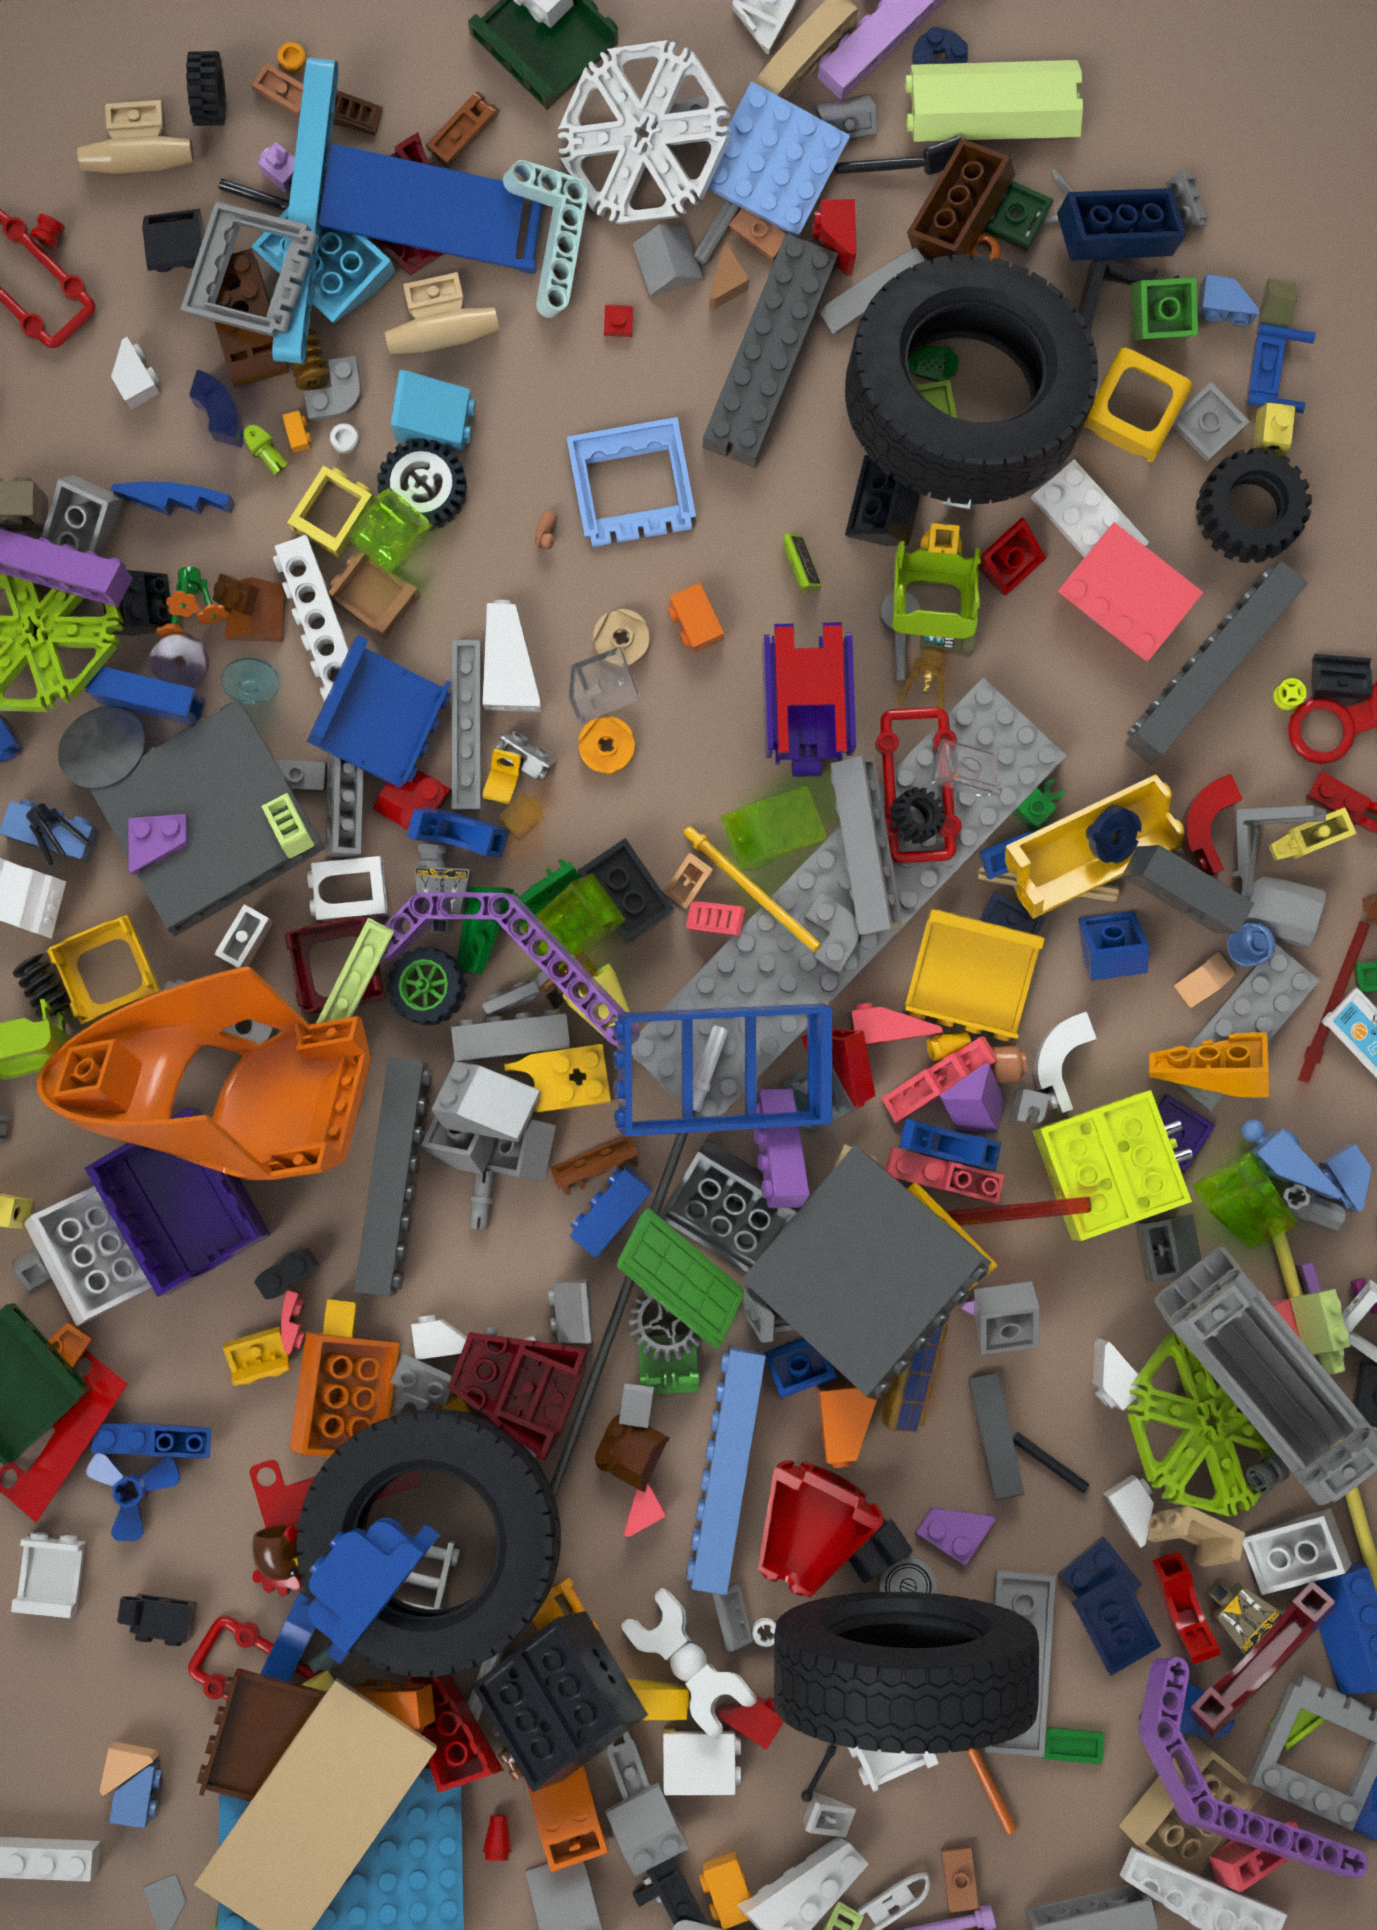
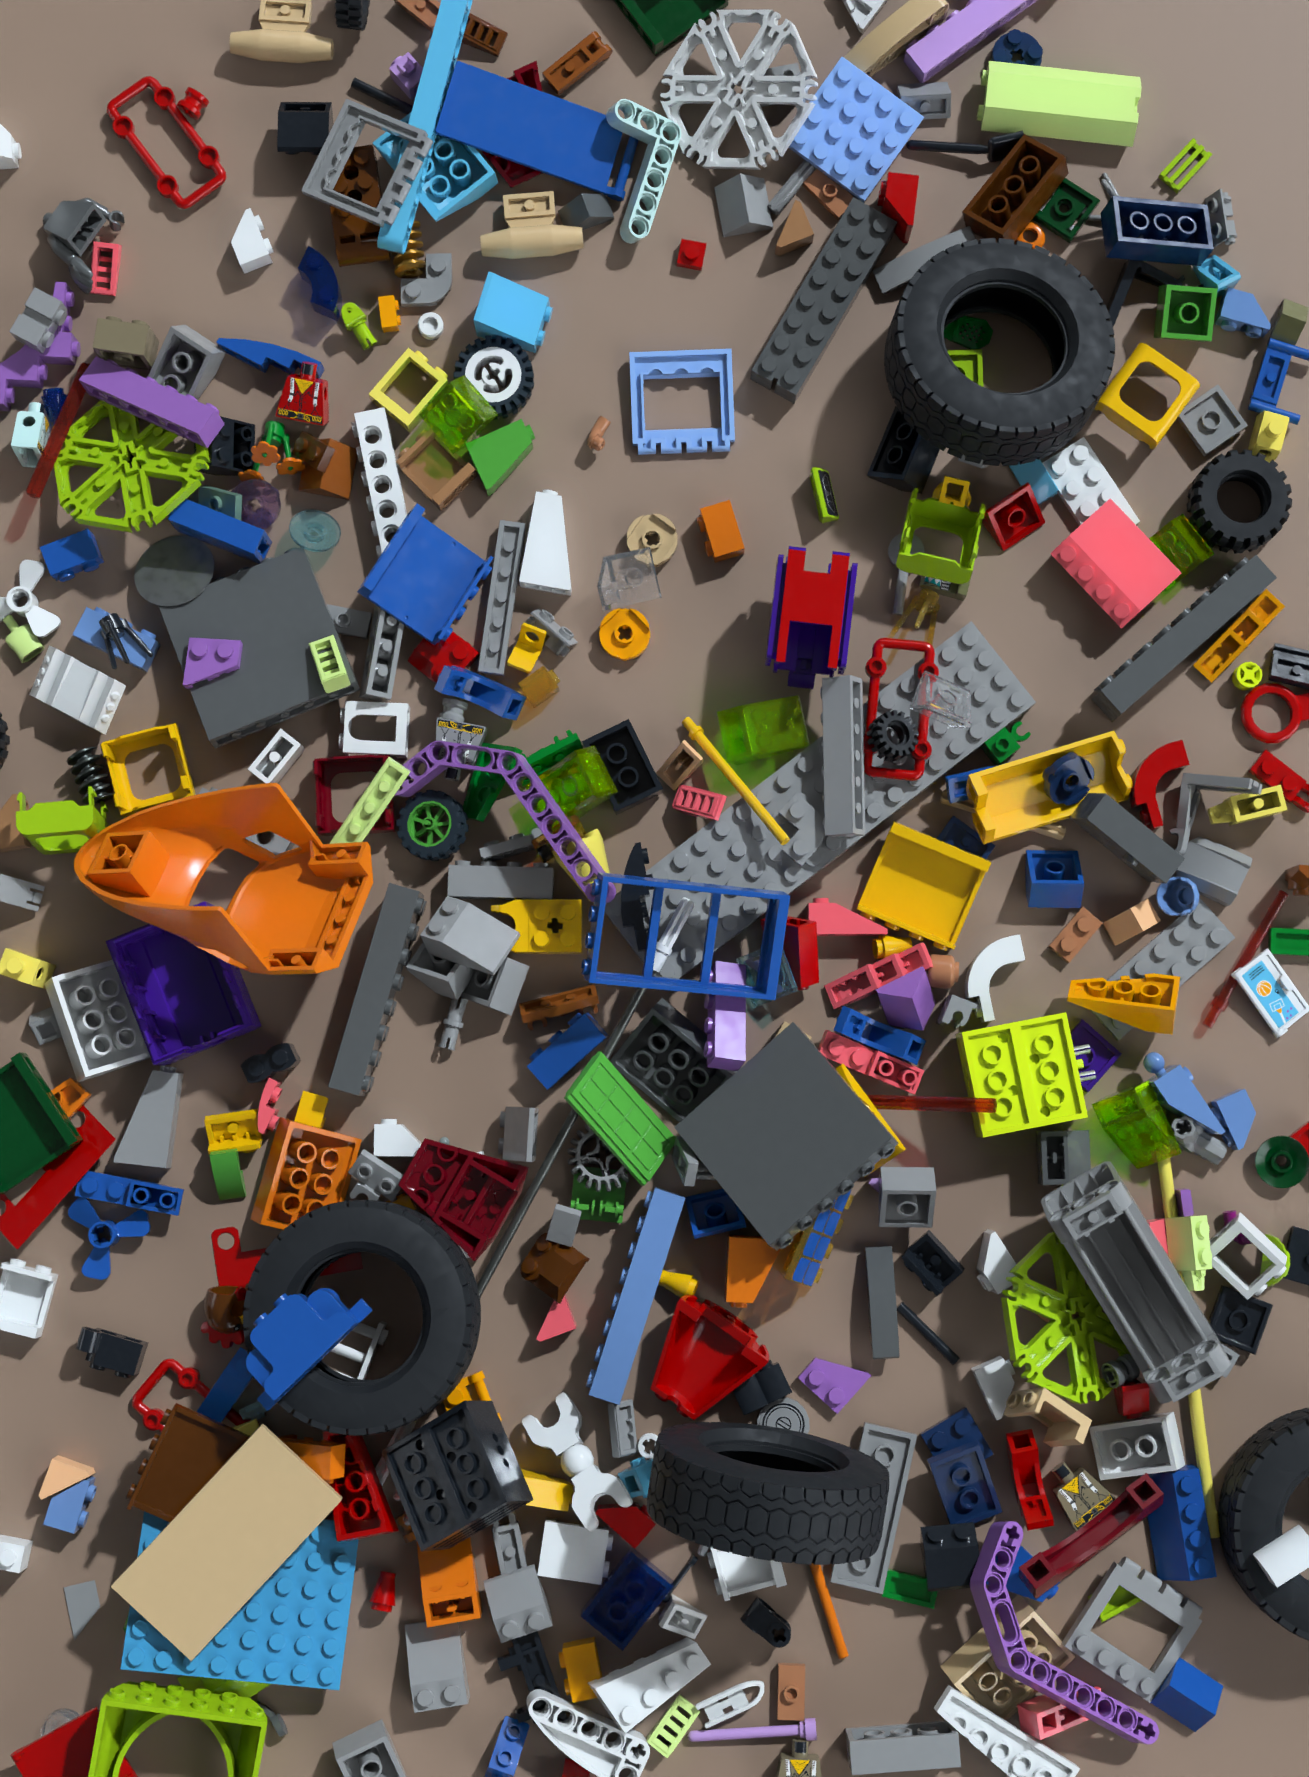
camera: 15 degrees right, 0 degrees up
(141, 663) = (221, 501): none -> sand green plate
(167, 1358) = (154, 1122): none -> light grey slope
(217, 536) = (305, 397): none -> red torso
(257, 1403) = (227, 1174): none -> bright green slope
(441, 567) = (500, 453): none -> bright green slope
(496, 289) = (586, 211): none -> dark grey slope
(659, 1045) = (631, 908): none -> black slope
(762, 1663) = (639, 1471): none -> medium azure brick
(765, 1805) = (627, 1598): none -> clear blue brick
(771, 1449) = (679, 1283): none -> yellow cone
(919, 1805) = (763, 1620): none -> black piece
(1031, 510) = (1037, 477): none -> medium azure slope
(1044, 1385) = (932, 1263): none -> black bracket
(1111, 1704) = (949, 1555): none -> black slope
(1145, 1002) = (1075, 934): none -> nougat plate
(1151, 131) = (1198, 150): none -> lime tile
(1192, 262) = (1217, 274): none -> medium azure slope
(1199, 562) = (1182, 546): none -> clear neon green slope
(1274, 651) = (1238, 635): none -> light orange slope
(1285, 1501) = (1132, 1398): none -> red slope

